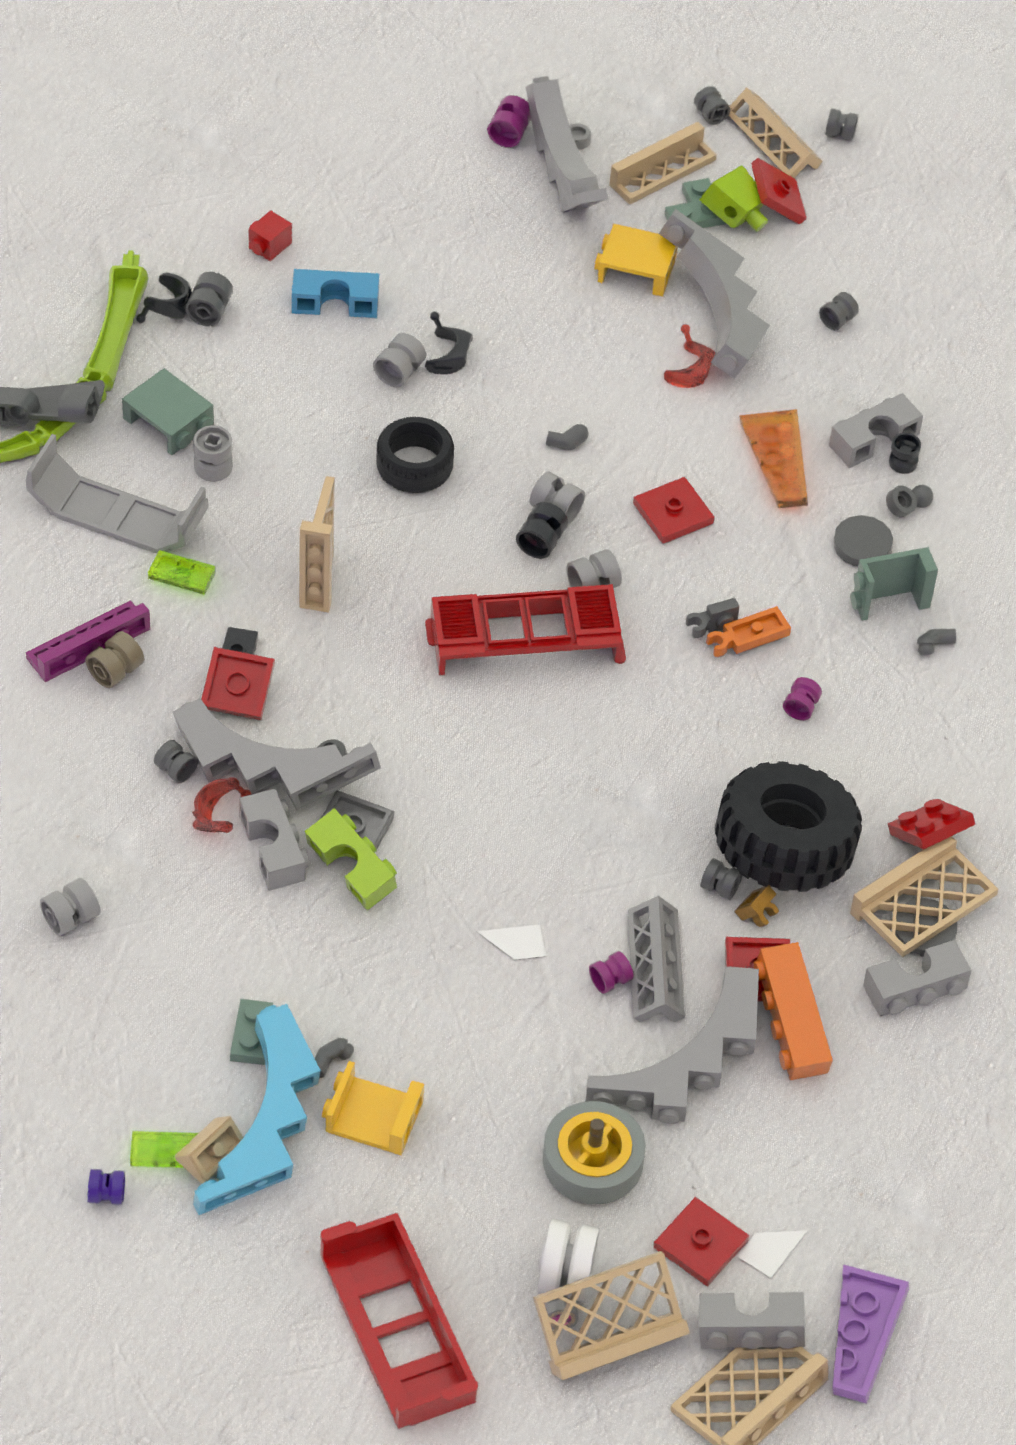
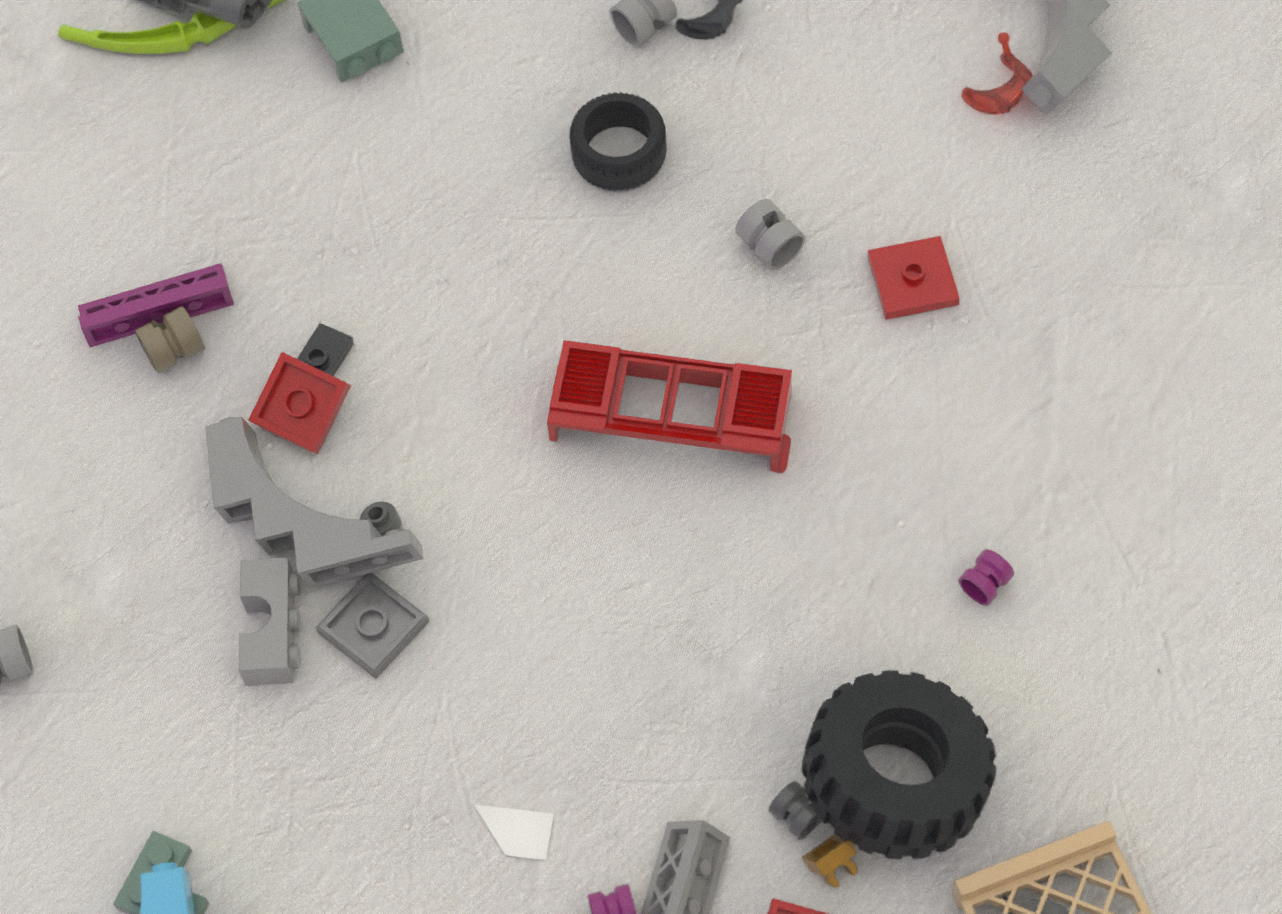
camera: 25 degrees right, 10 degrees up
(107, 508) = (235, 133): light grey windscreen -> none
(175, 761) = (191, 487): dark grey wheel -> none
(181, 572) = (292, 239): clear neon green plate -> none
(207, 799) = (207, 553): clear red helmet -> none
(213, 453) = (380, 92): light grey wheel -> none
(318, 553) = (442, 249): tan fence -> none
(336, 837) = (363, 703): lime arch -> none
(542, 530) = (734, 276): black wheel -> none
(570, 439) = (816, 155): dark grey arm -> none
(598, 570) = (781, 346): light grey wheel -> none
(713, 618) = (914, 438): dark grey plate -> none
(750, 632) = (952, 467): orange plate -> none
(779, 454) = (1071, 225): clear orange wing -> none
(836, 313) = (1207, 49): dark grey wheel -> none
(854, 437) = (1230, 208): light grey arch -> none
(862, 538) = (1139, 370): dark grey tile -> none
(893, 575) = (1155, 432): sand green panel -> none
(903, 500) = (1233, 323): dark grey plate -> none
(904, 453) = (1231, 260): black wheel -> none
(931, 823) = (1093, 799): red plate -> none
(935, 636) = (1187, 525): dark grey arm -> none

